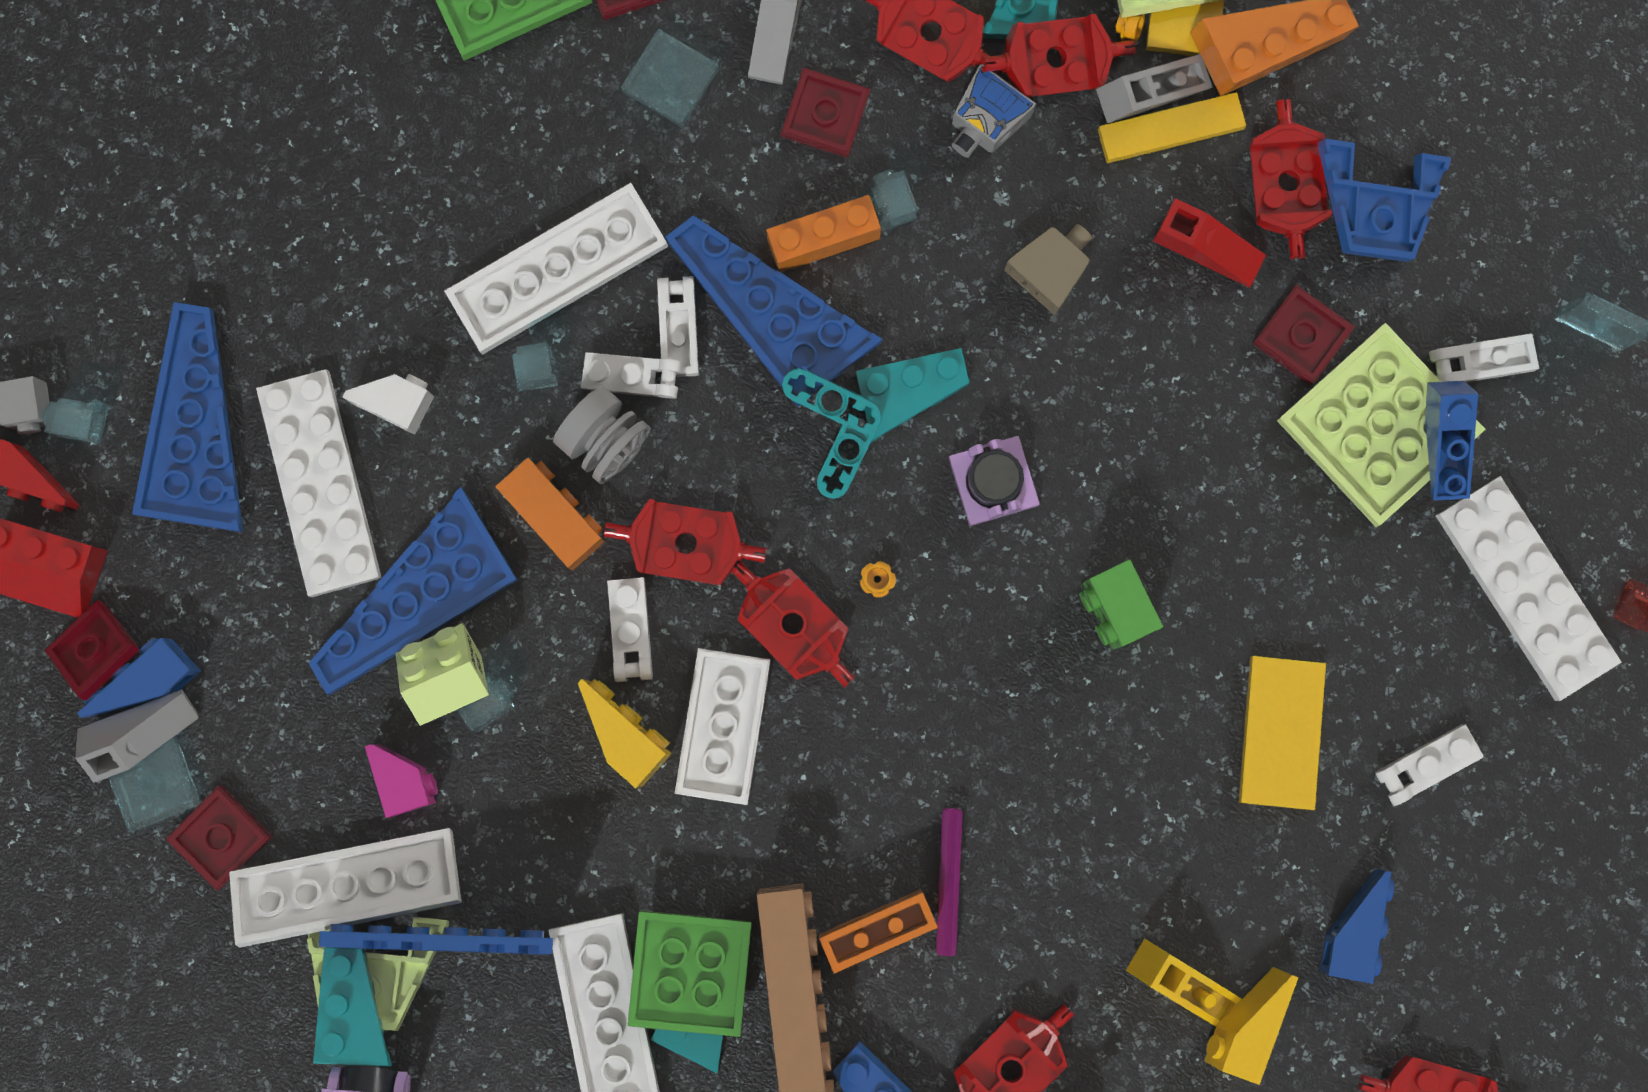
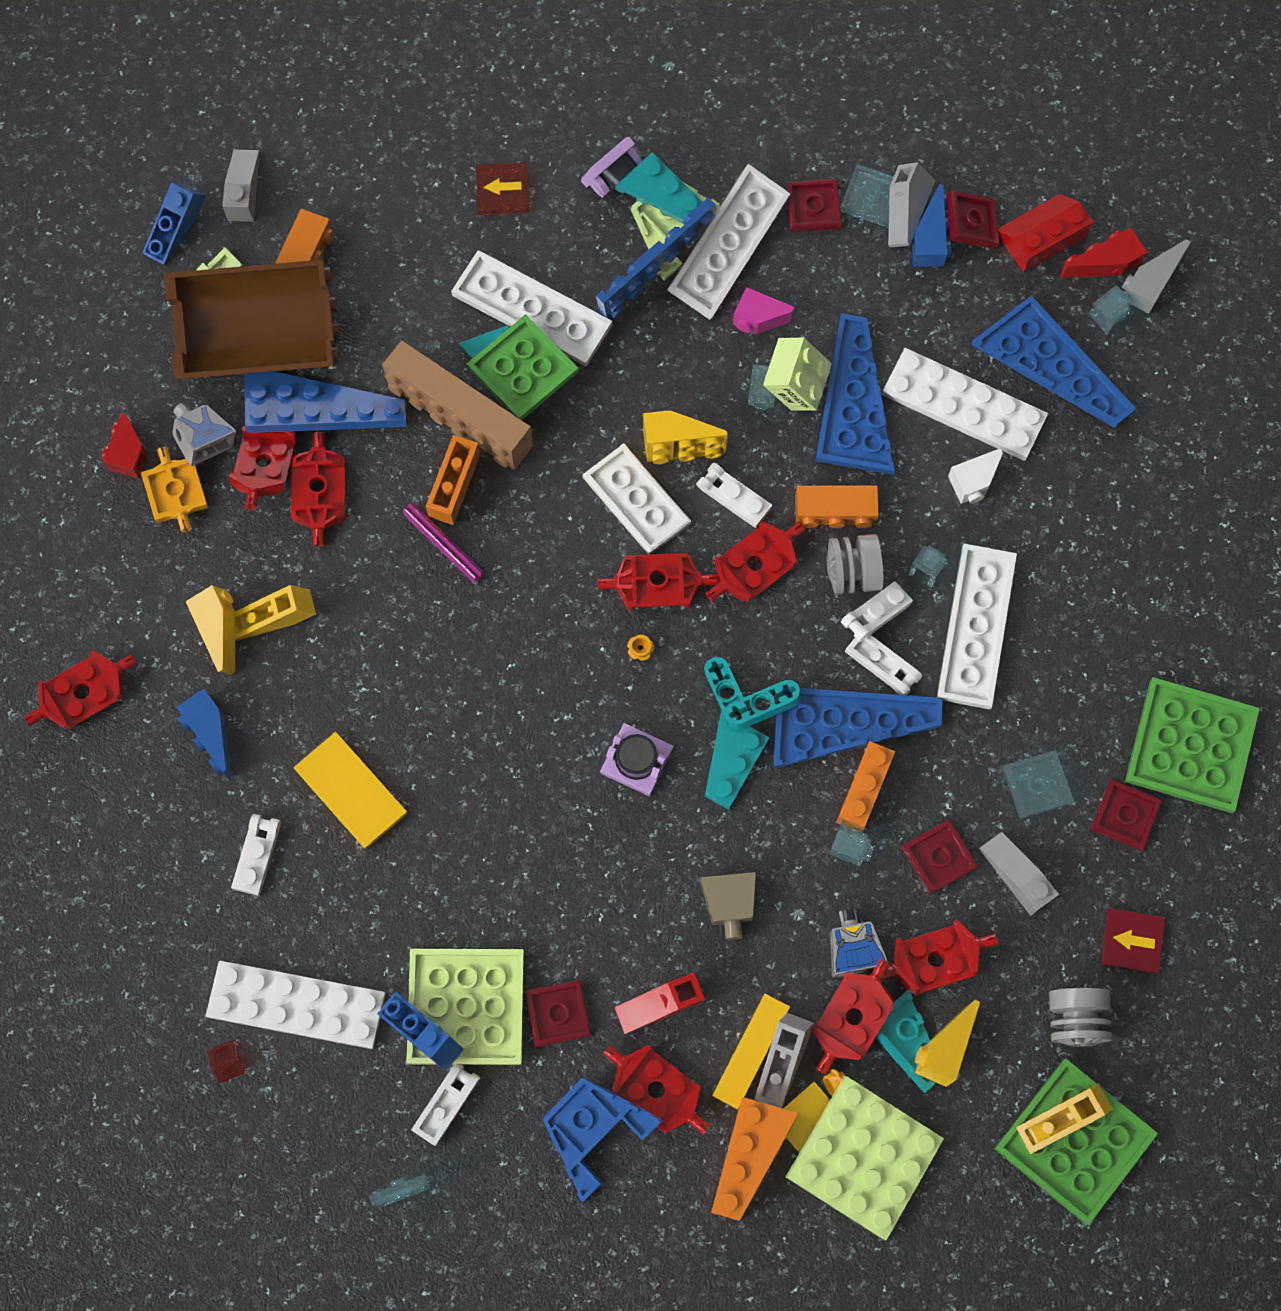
camera: 130 degrees right, 10 degrees down
(1119, 606) = (502, 757): bright green brick -> none

